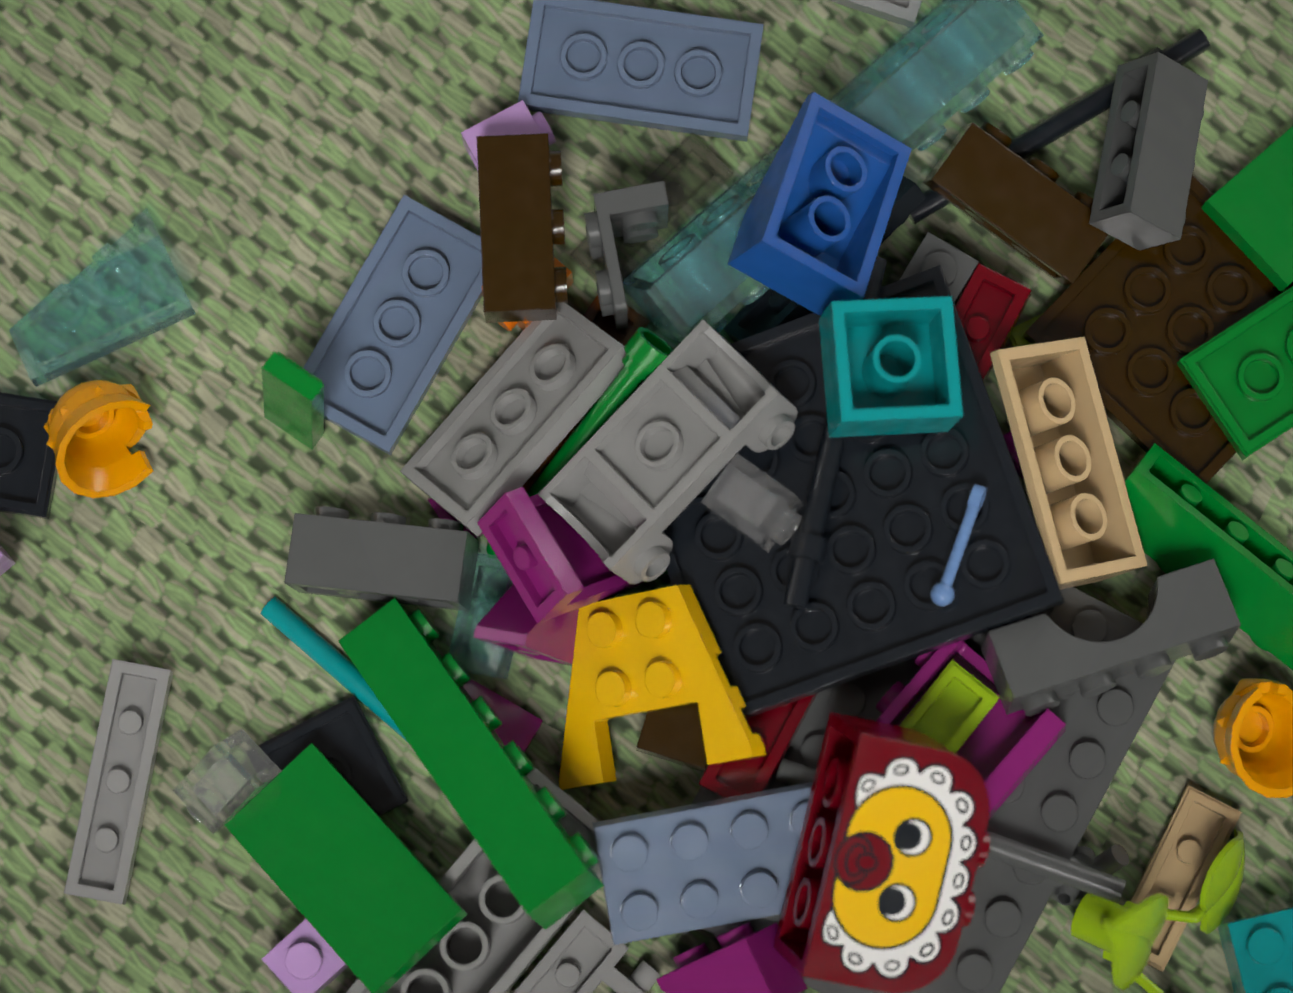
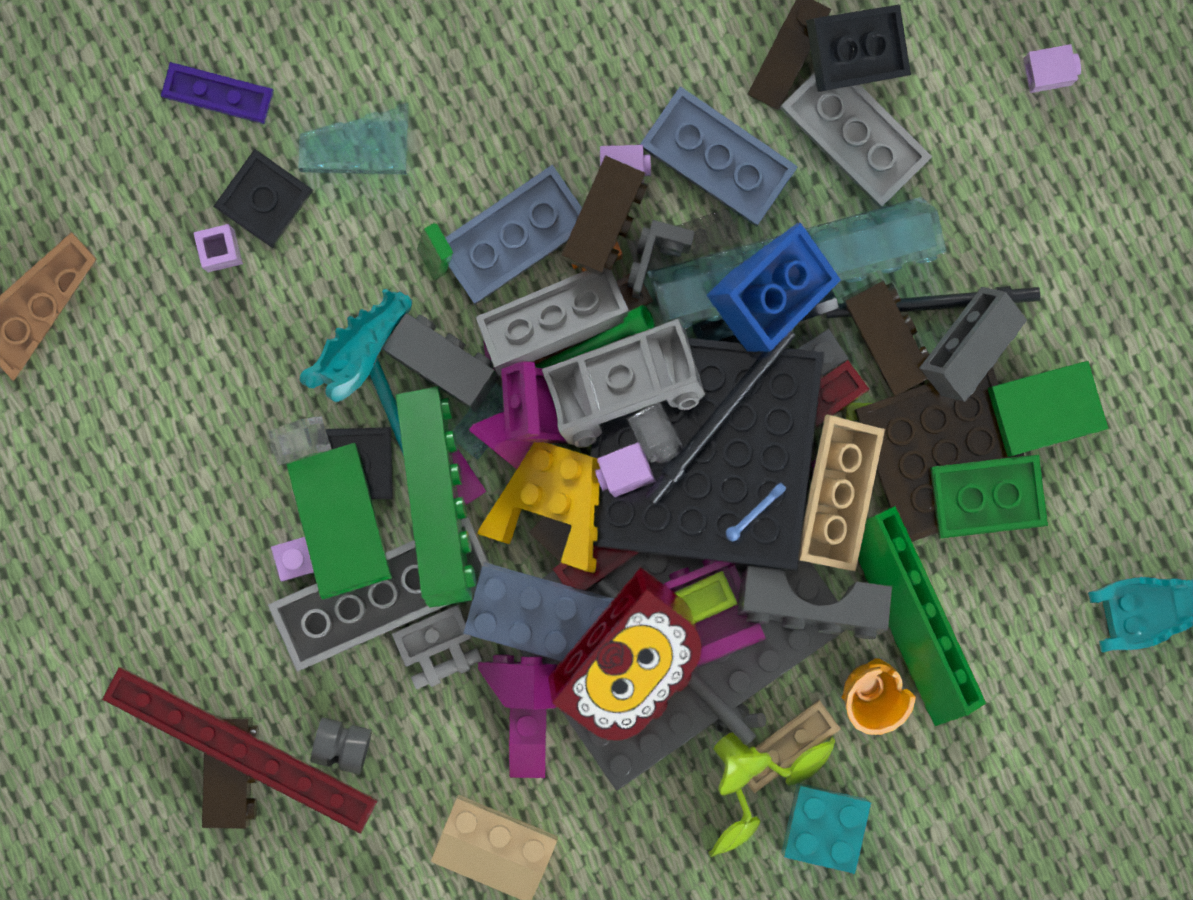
camera: 25 degrees right, 5 degrees up
(93, 435) = (316, 216): light orange helmet -> none
(118, 782) = (241, 411): light grey plate -> none
(245, 610) = (354, 350): none -> teal animal
(735, 580) = (624, 470): none -> lavender brick
(890, 366) = (765, 396): teal brick -> none

